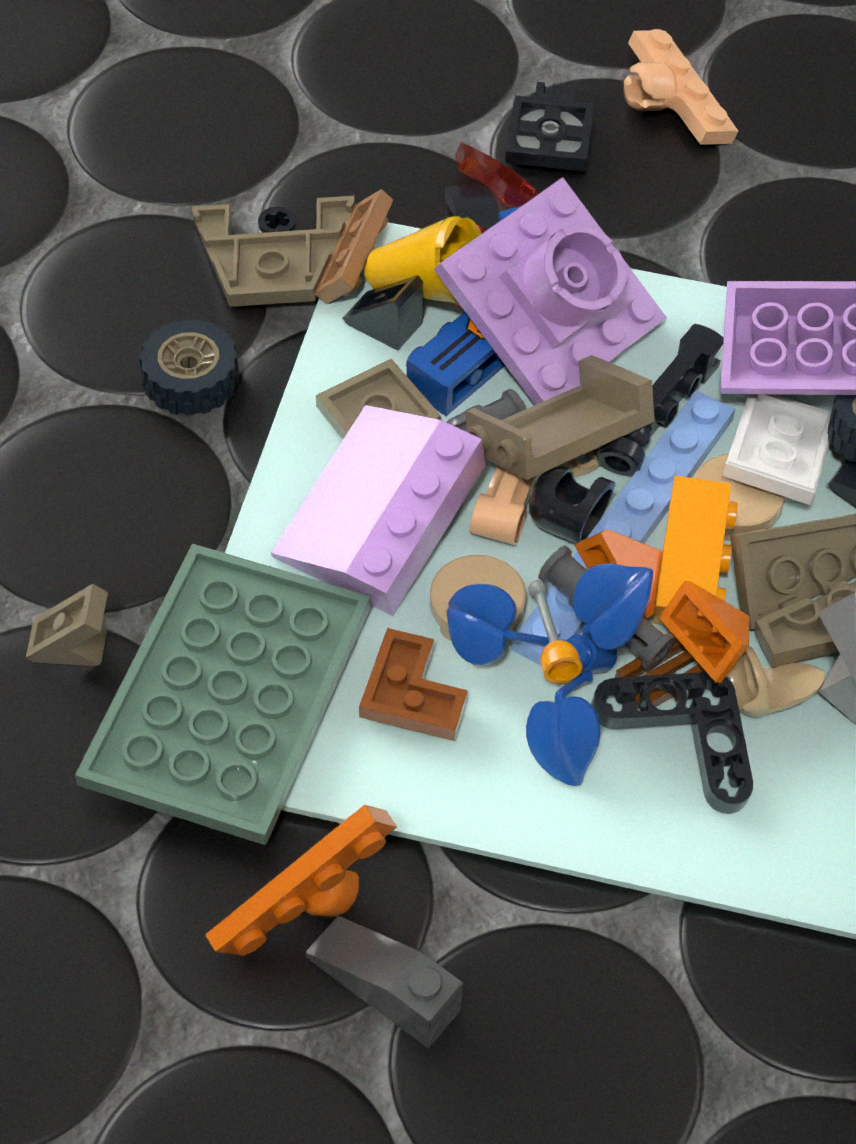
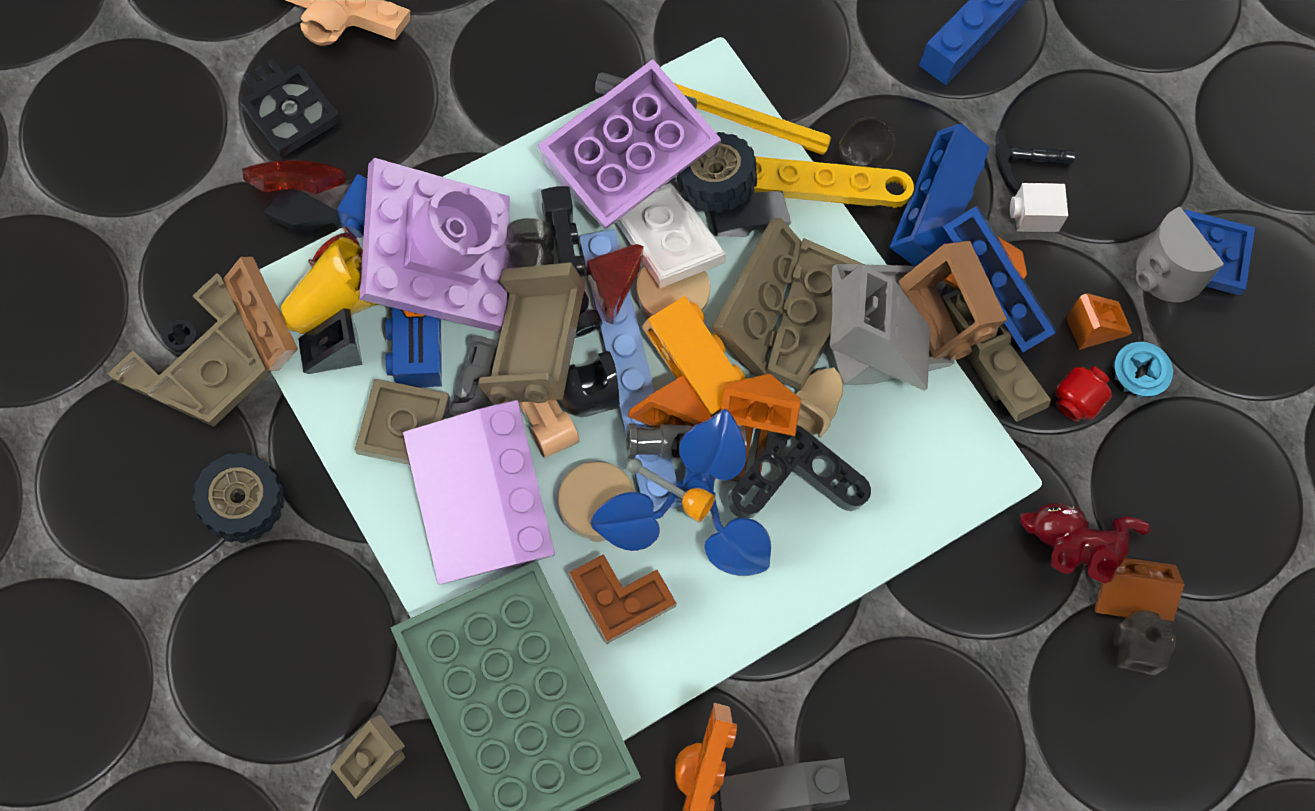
camera: 50 degrees left, 15 degrees up
(642, 352) = (529, 243): none -> clear smoke wheel
(687, 433) = (613, 277): none -> clear red slope

